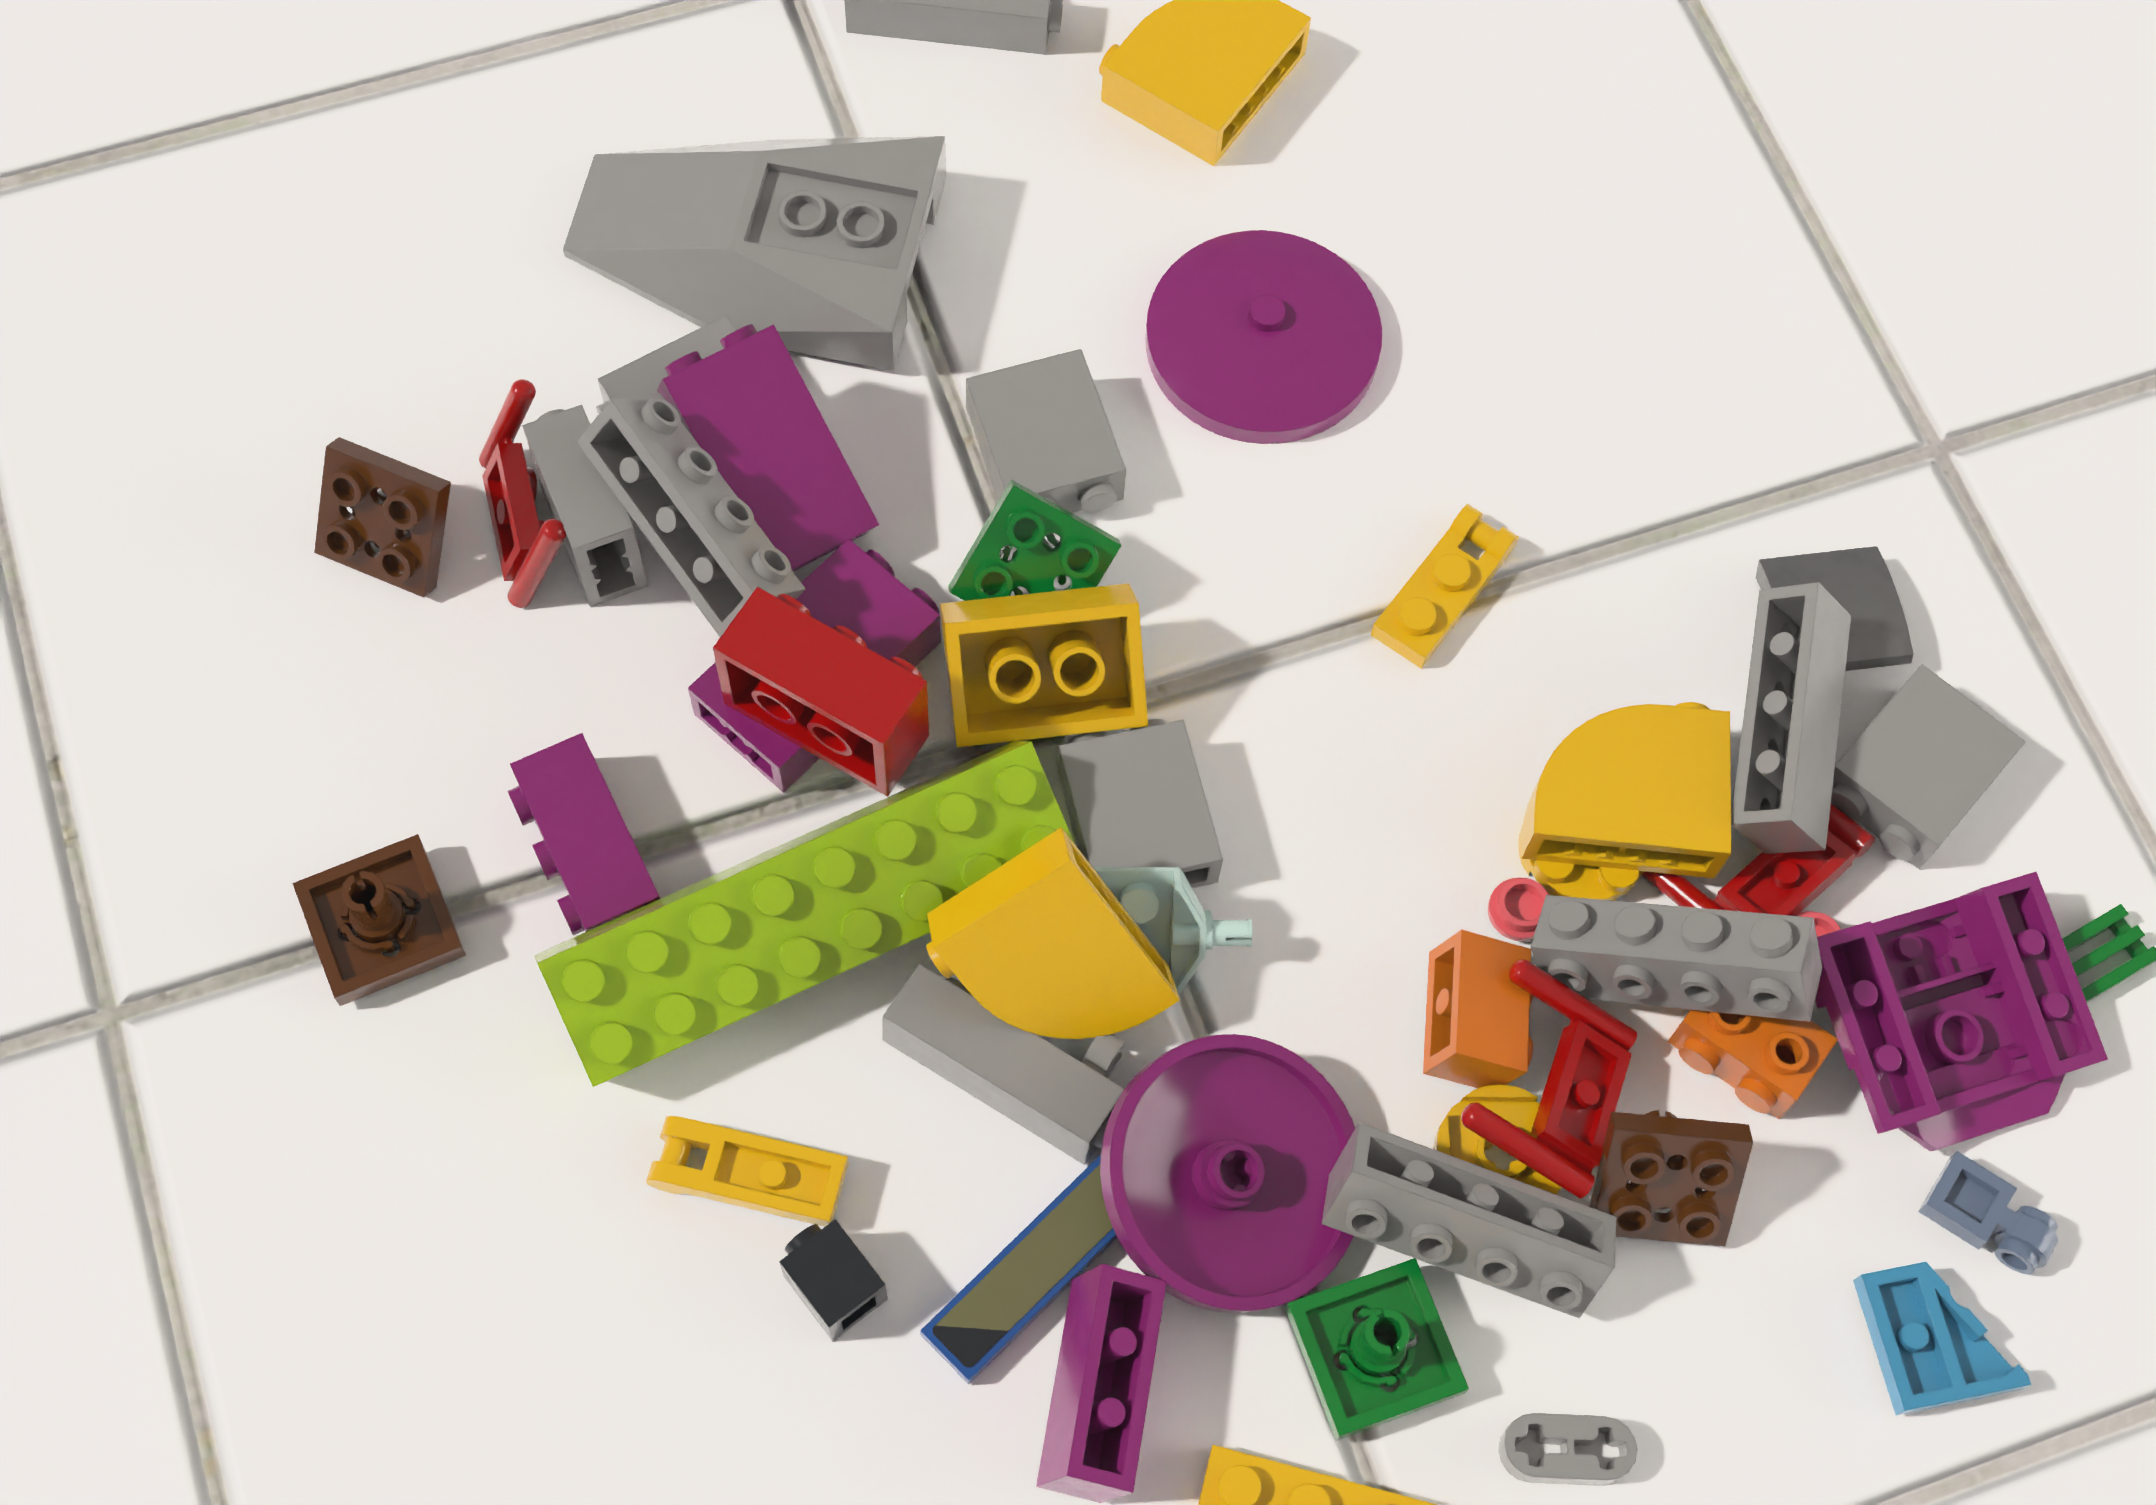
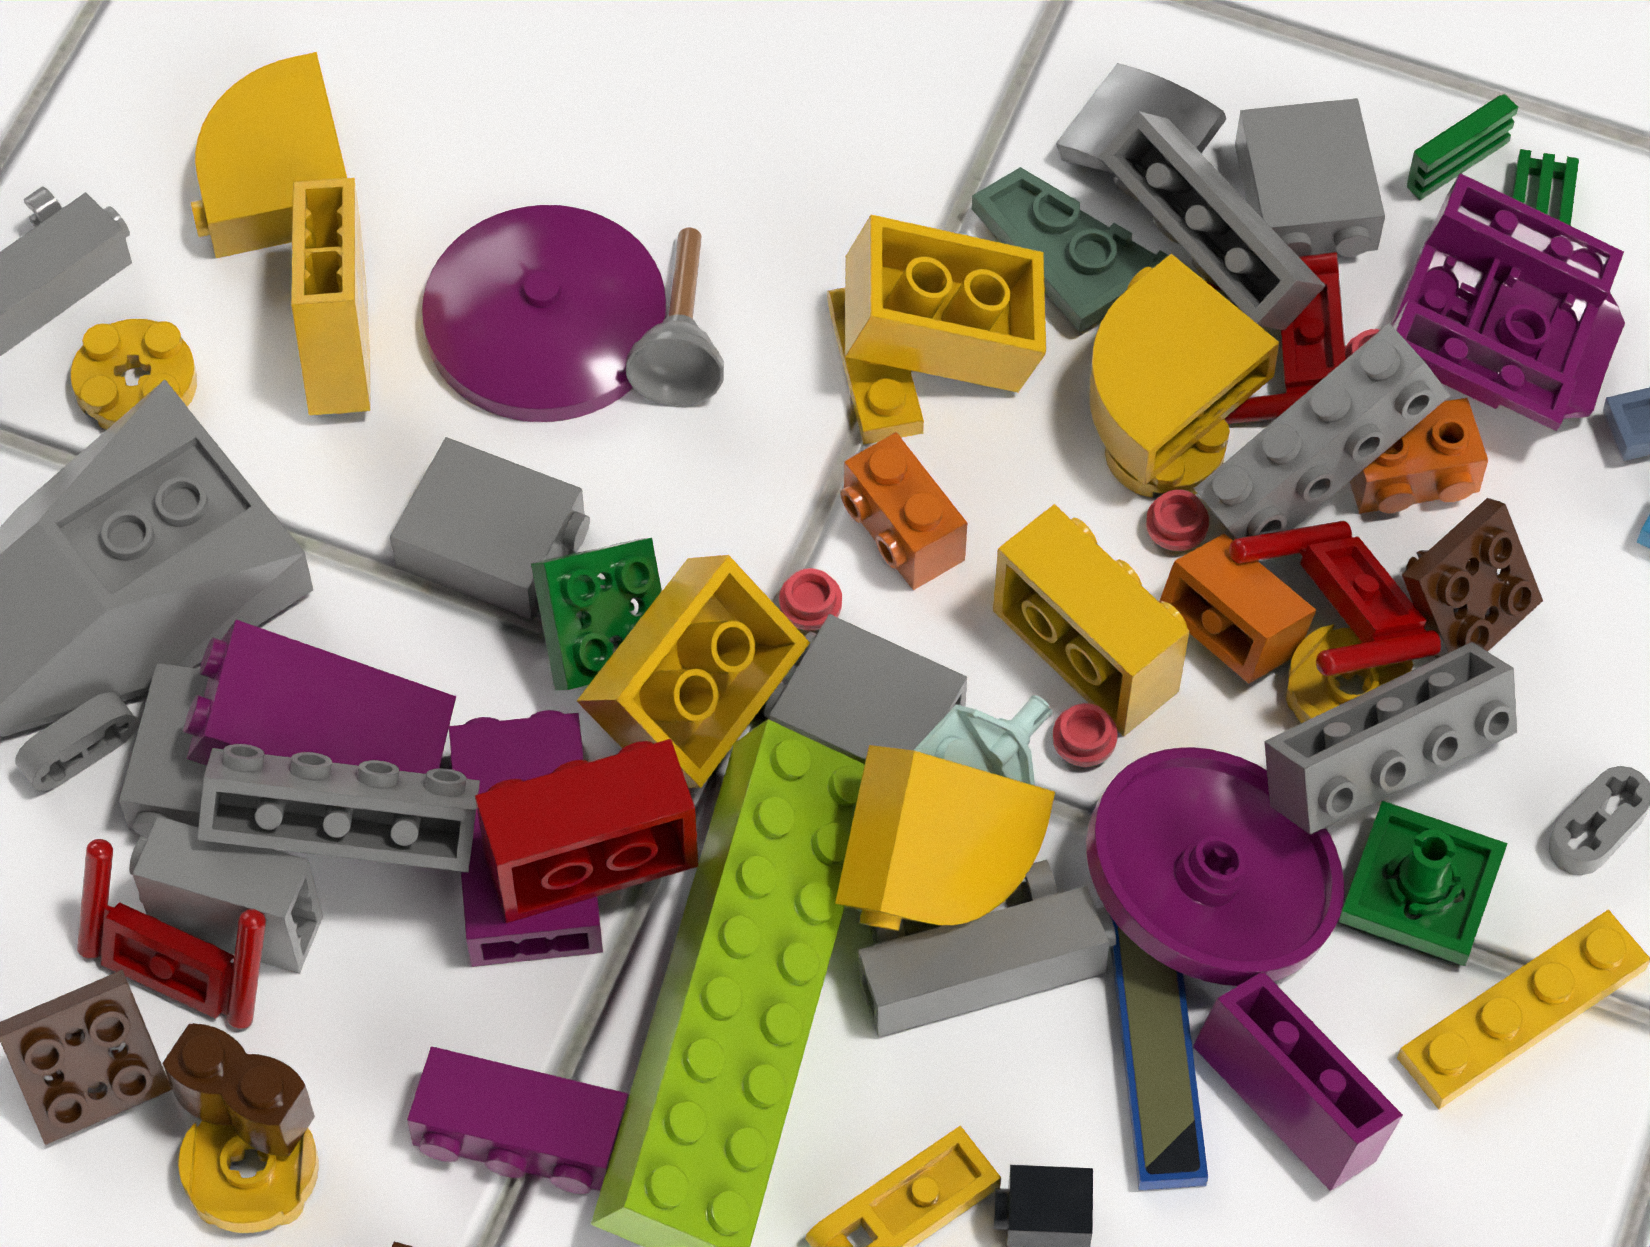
camera: 45 degrees left, 5 degrees down
(409, 726) = (239, 1203): none -> yellow plate
(433, 634) = (229, 1087): none -> reddish brown brick
(630, 318) = (76, 741): none -> light grey beam
(963, 98) = (125, 345): none -> yellow plate
(1118, 183) = (330, 296): none -> yellow brick
(1198, 700) = (810, 598): none -> coral plate
(1268, 987) = (1085, 735): none -> coral plate
(1303, 446) = (676, 358): none -> light grey piece
(1330, 703) = (904, 511): none -> orange brick
(1360, 909) = (1090, 618): none -> yellow brick
(1526, 589) = (944, 304): none -> yellow brick
(1677, 634) = (1083, 258): none -> sand green wing
(2074, 856) = (1461, 146): none -> green tile

